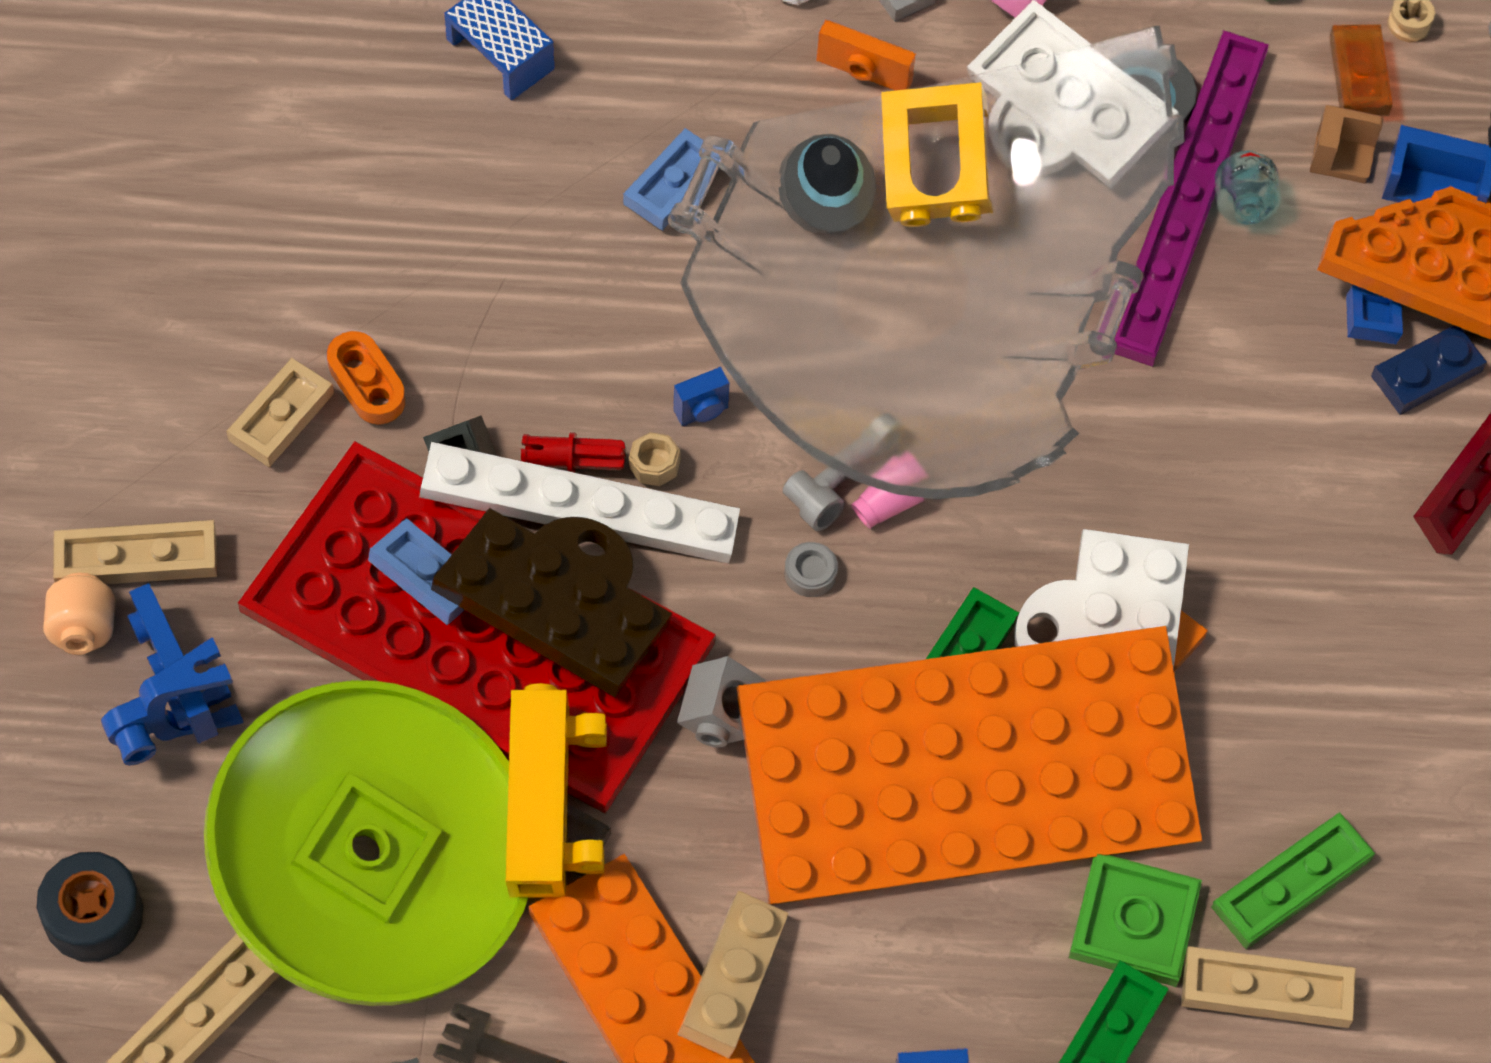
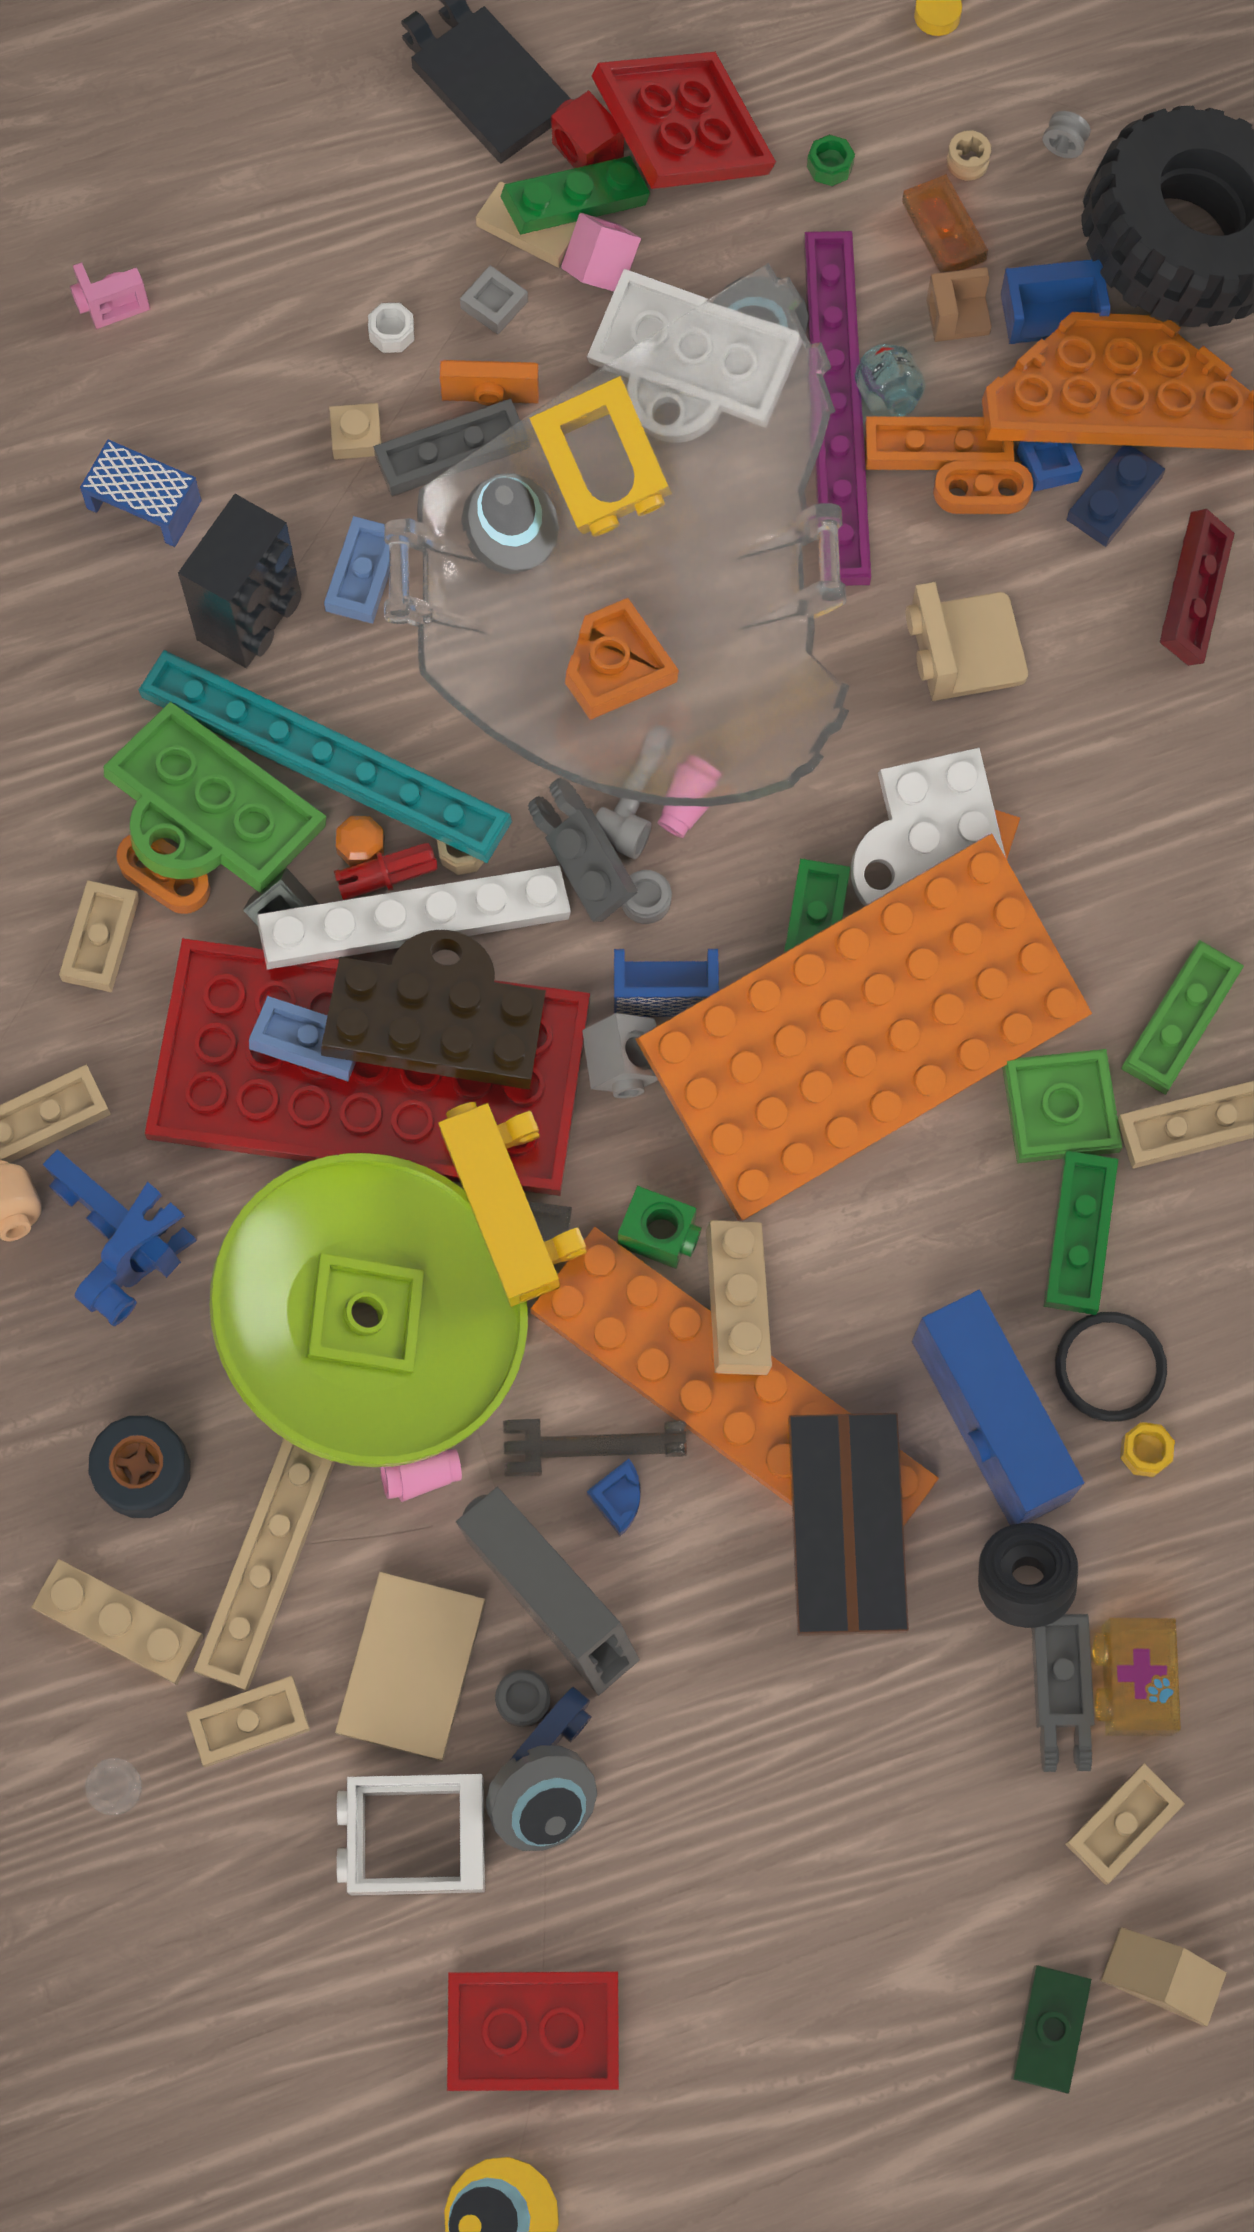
camera: 20 degrees left, 10 degrees up
(352, 1022) = (422, 1476): none -> bright pink cone
(435, 332) = (209, 803): none -> bright green plate
(550, 141) = (241, 581): none -> black brick
(561, 415) = (359, 840): none -> orange tile
(565, 331) = (327, 756): none -> teal tile
(684, 855) = (648, 1207): none -> green brick
(701, 397) = (482, 771): blue plate -> none
(723, 58) = (355, 430): none -> tan plate
(767, 503) = (583, 851): none -> dark grey hinge
(782, 95) = (429, 452): none -> dark grey plate
(784, 653) = (662, 986): none -> blue panel
(873, 341) = (616, 660): none -> orange plate
(1221, 450) = (965, 643): none -> tan bracket
(1266, 260) = (929, 442): none -> orange plate
(1299, 314) = (981, 486): none -> orange plate

